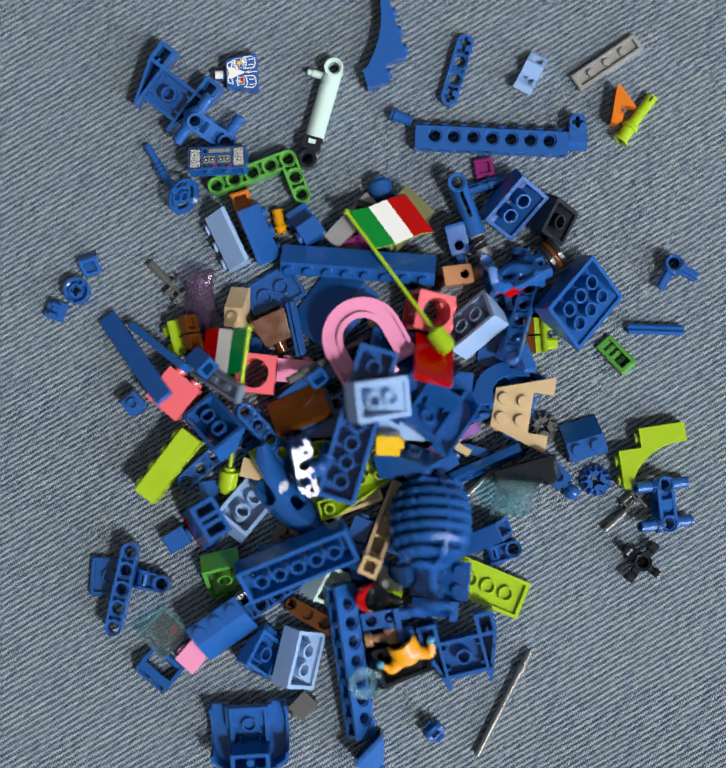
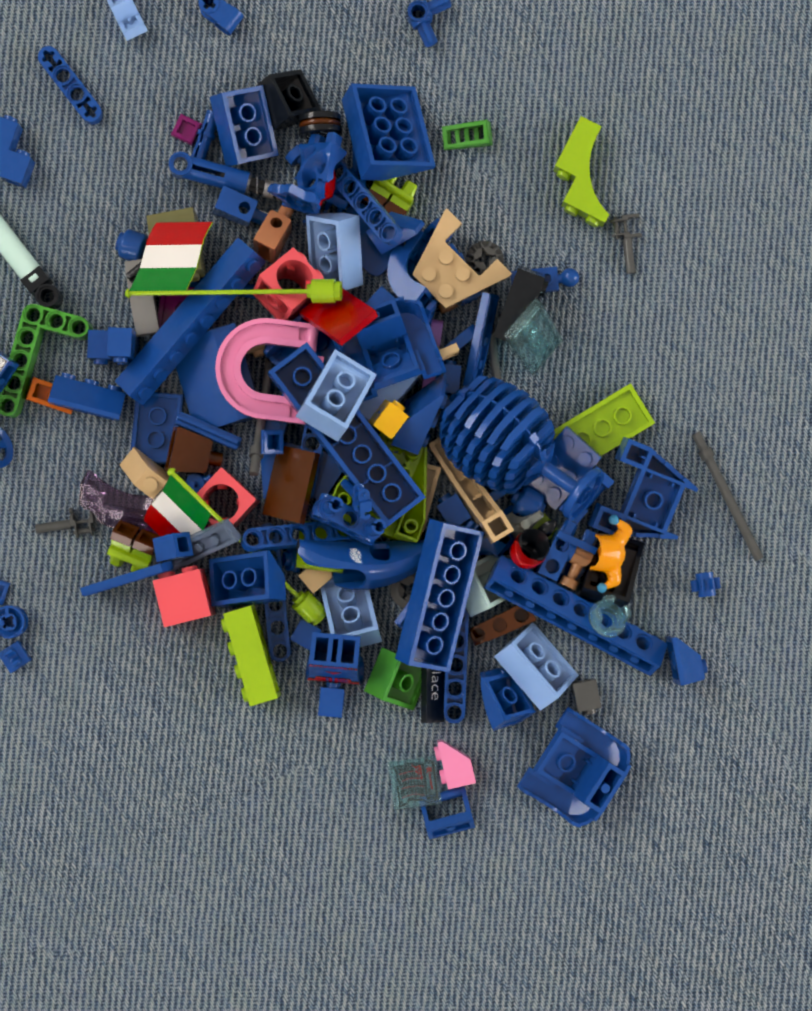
camera: 55 degrees left, 0 degrees up
(103, 575) = (319, 795): blue tile -> none
(116, 595) = (344, 802): blue beam -> none
(134, 404) = (165, 646): blue brick -> none
(136, 358) = (120, 609): blue tile -> none
(149, 579) = (351, 760): blue piece -> none
(222, 628) = (451, 719): blue slope -> none
(226, 240) = (70, 434): light blue slope -> none
(279, 221) = (89, 369): light orange pin -> none
(289, 366) = (239, 464): bright pink slope -> none
(401, 117) = (75, 173): blue pin -> none
(489, 535) = (553, 389): blue slope -> none
(500, 147) = (163, 115): blue brick -> none
(502, 553) = (578, 389): blue piece -> none
(582, 439) = (525, 228): blue slope -> none
(586, 482) = (572, 256): blue gear -> none
(635, 570) = (691, 269): black pin -> none
(655, 329) = (469, 78): blue axle -> none
(663, 504) = (646, 196): blue piece -> none

